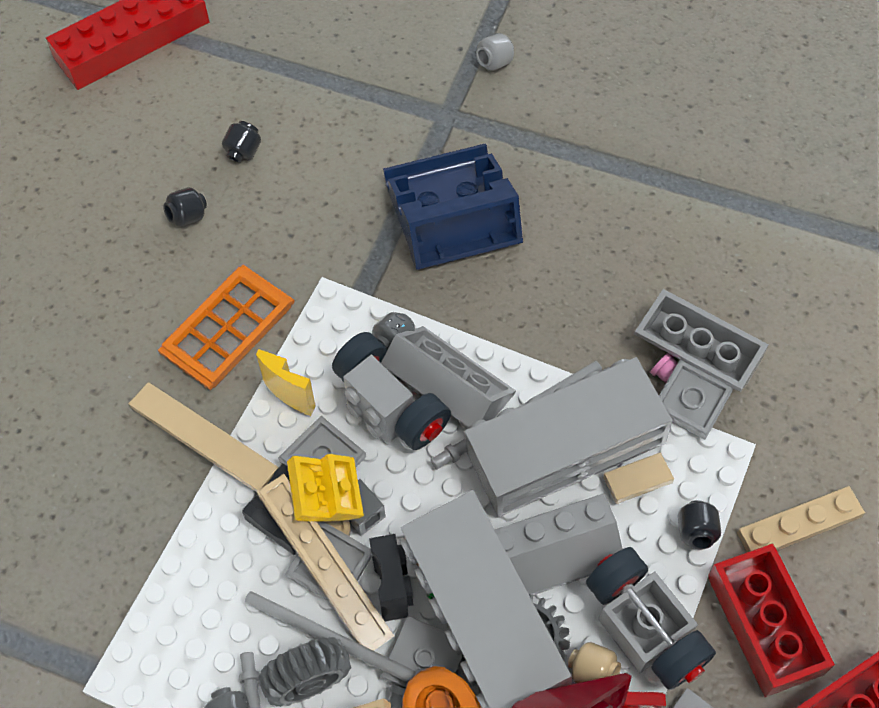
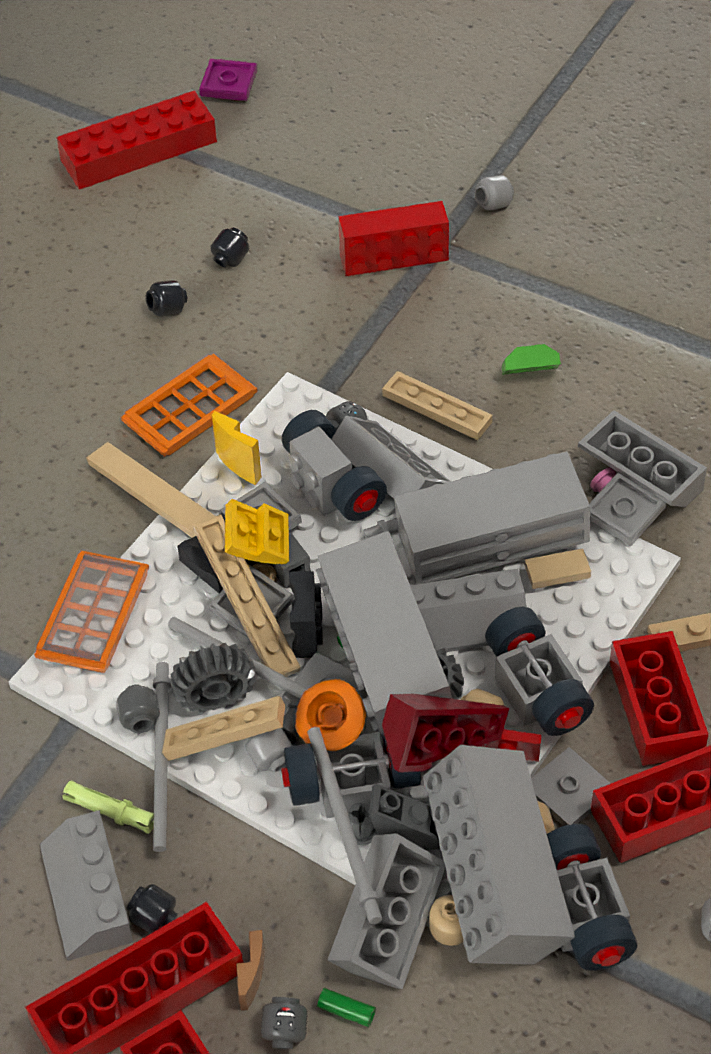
camera: 10 degrees right, 10 degrees down
(160, 596) = (92, 611): none -> clear piece
(406, 115) = (394, 238): none -> red brick
(454, 205) = (426, 323): dark blue panel -> none
(480, 297) = (437, 405): none -> tan plate
(564, 235) = (531, 359): none -> bright green slope
(699, 524) = (606, 610): black head -> none

